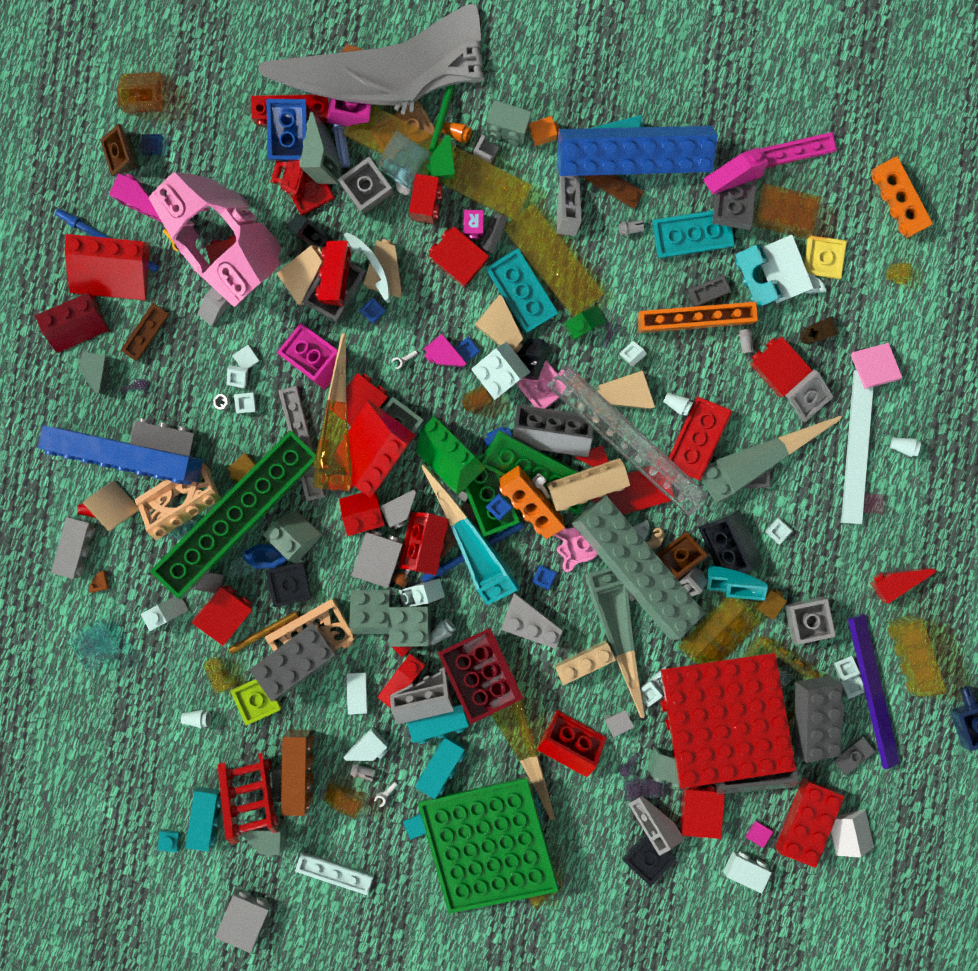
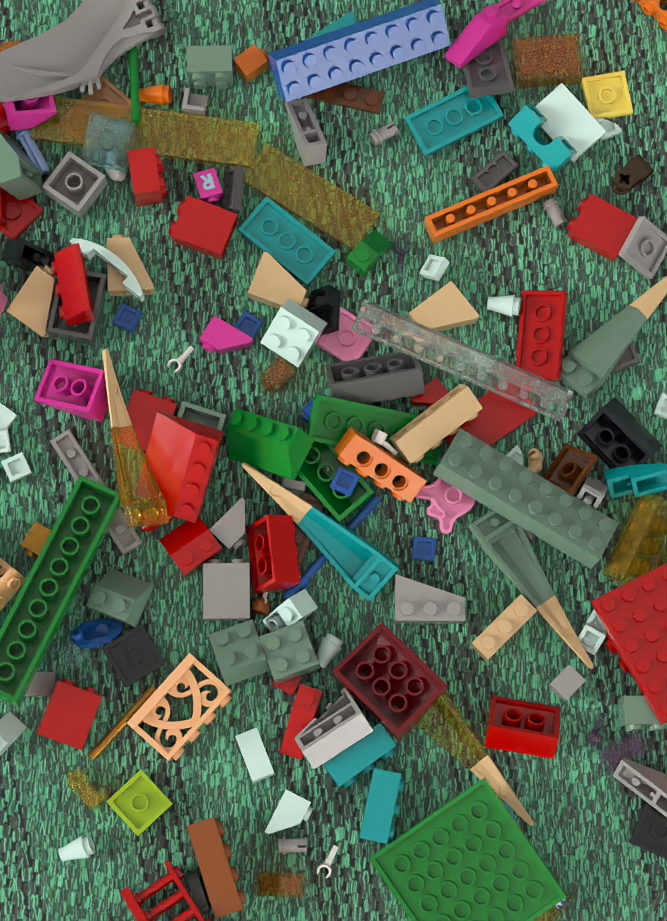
camera: 25 degrees left, 10 degrees down
(294, 662) = (171, 736): dark grey brick -> none
(414, 826) = (375, 888): teal tile -> none
(442, 161) = (151, 129): green slope -> none

